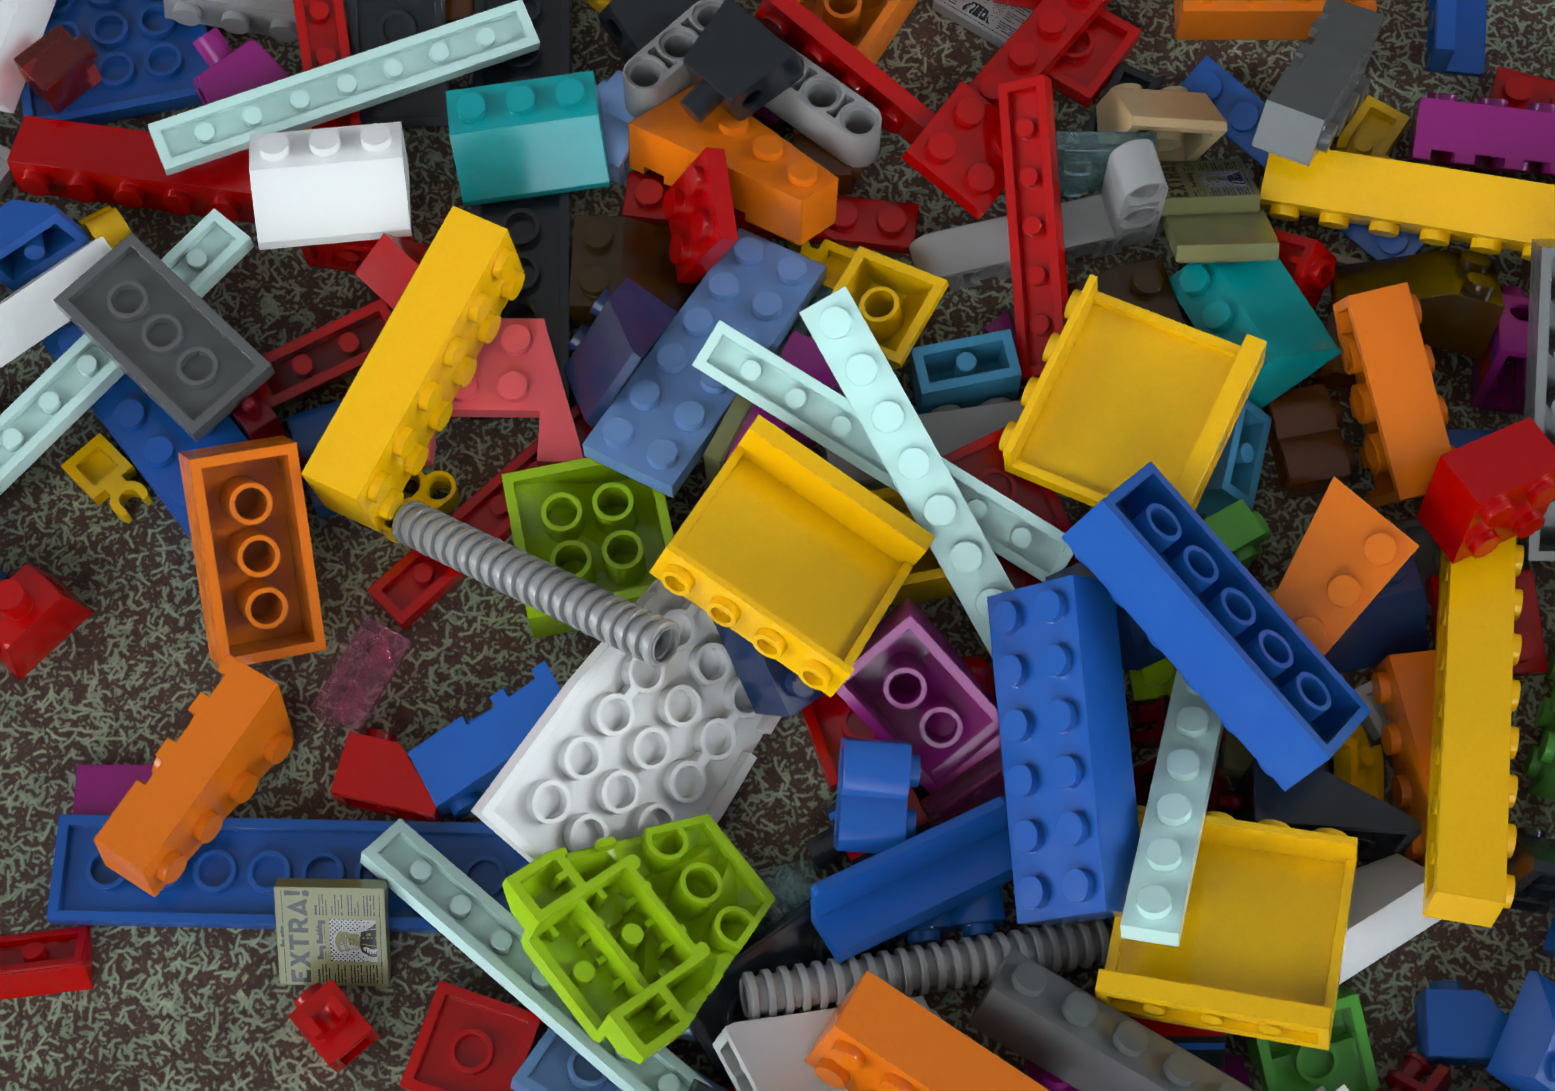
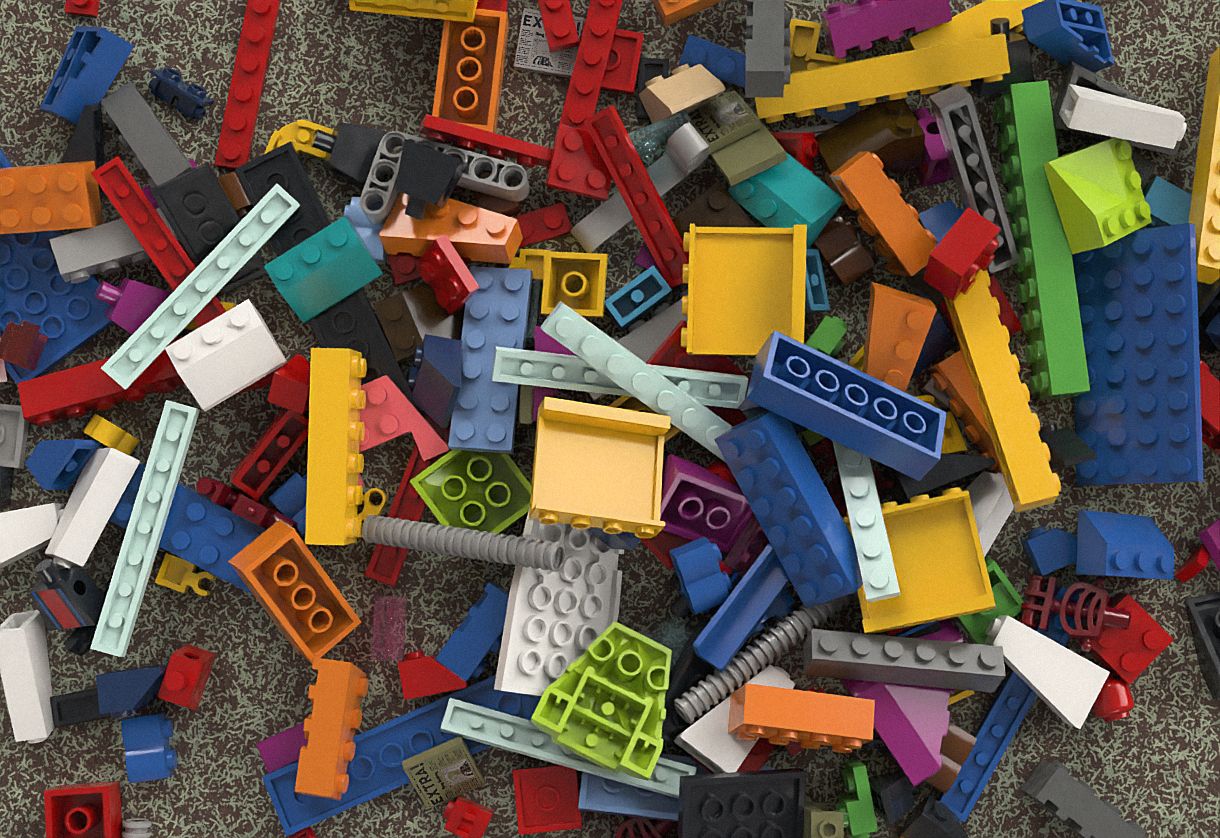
camera: 25 degrees left, 15 degrees up
(164, 337) = (181, 494): dark grey plate -> none

